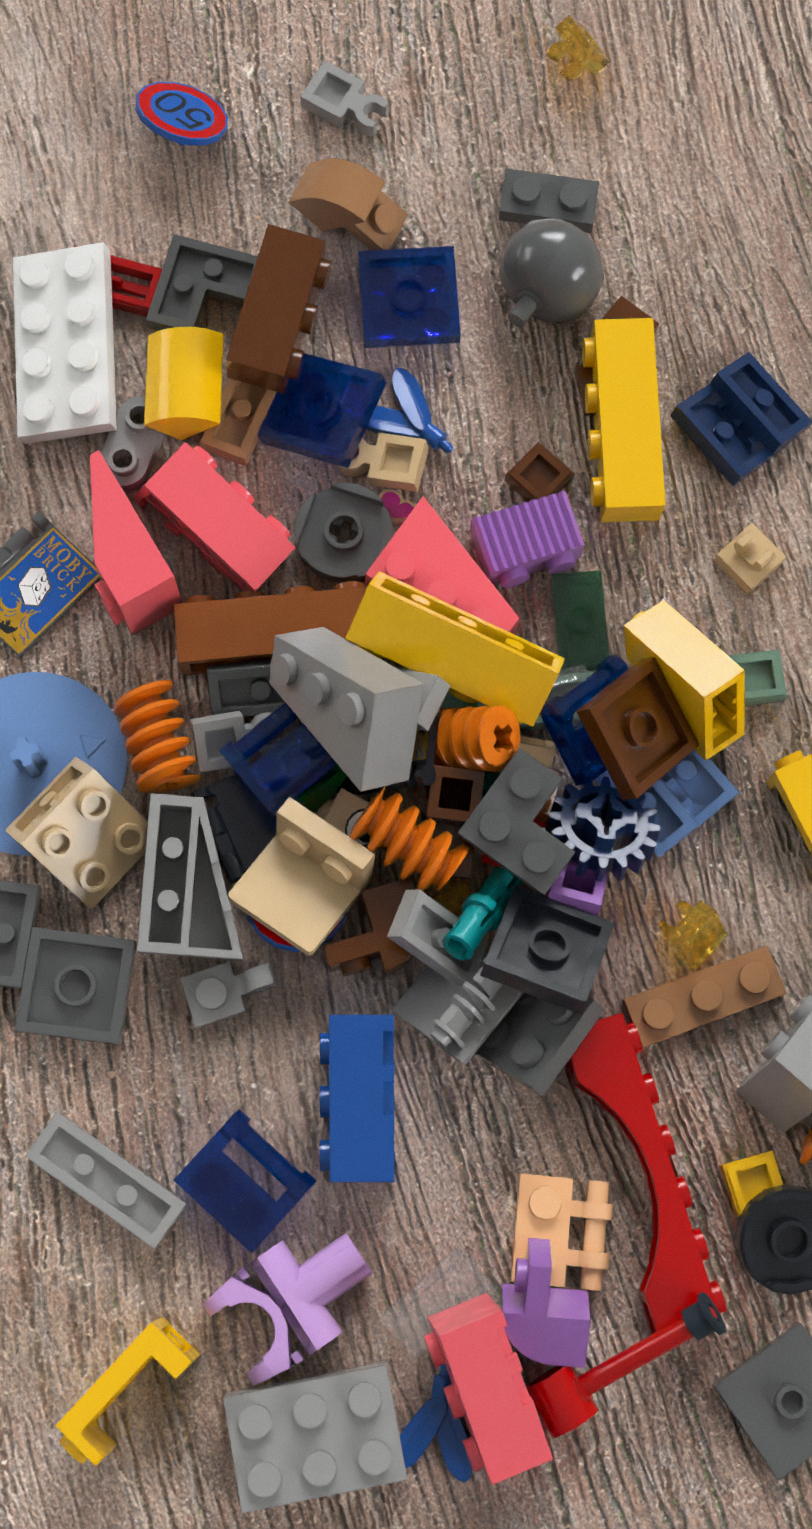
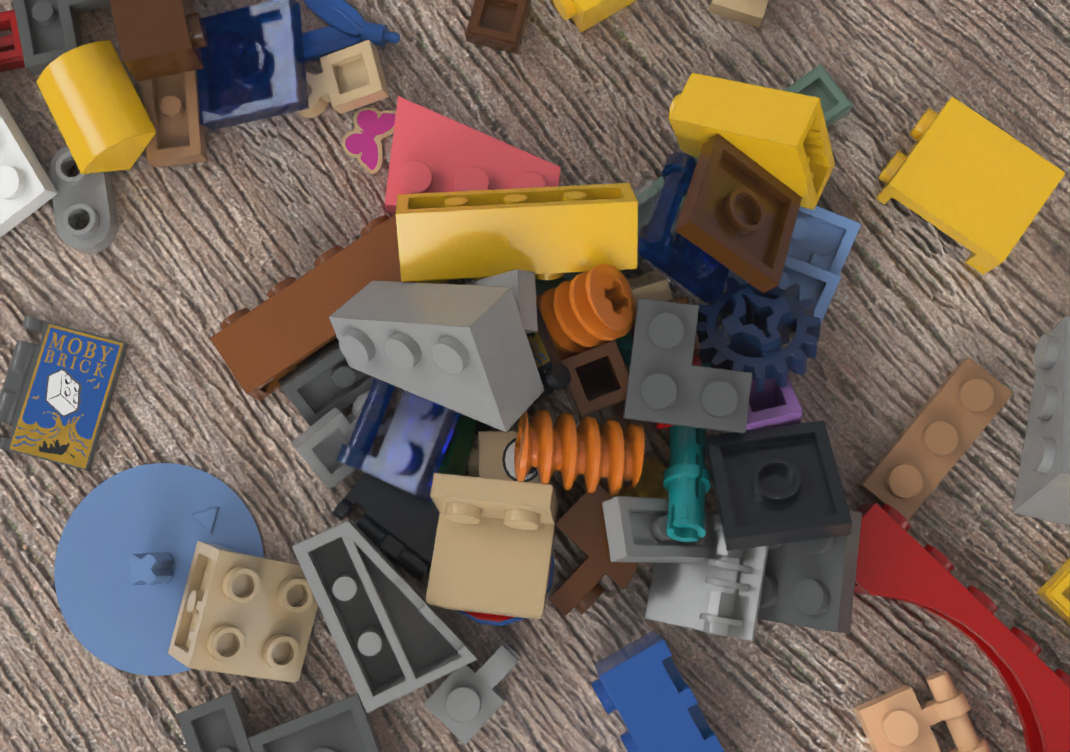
camera: 20 degrees left, 5 degrees up
(134, 576) = (148, 329): coral slope -> none
(153, 738) = (265, 481): orange piece -> none
(217, 518) = (203, 226): coral wedge -> none
(331, 509) = (315, 157): dark grey plate -> none
(527, 540) = (522, 85): medium lavender brick -> none
(579, 618) = (614, 136): clear green plate -> none
(695, 934) = (897, 385): clear yellow tile -> none

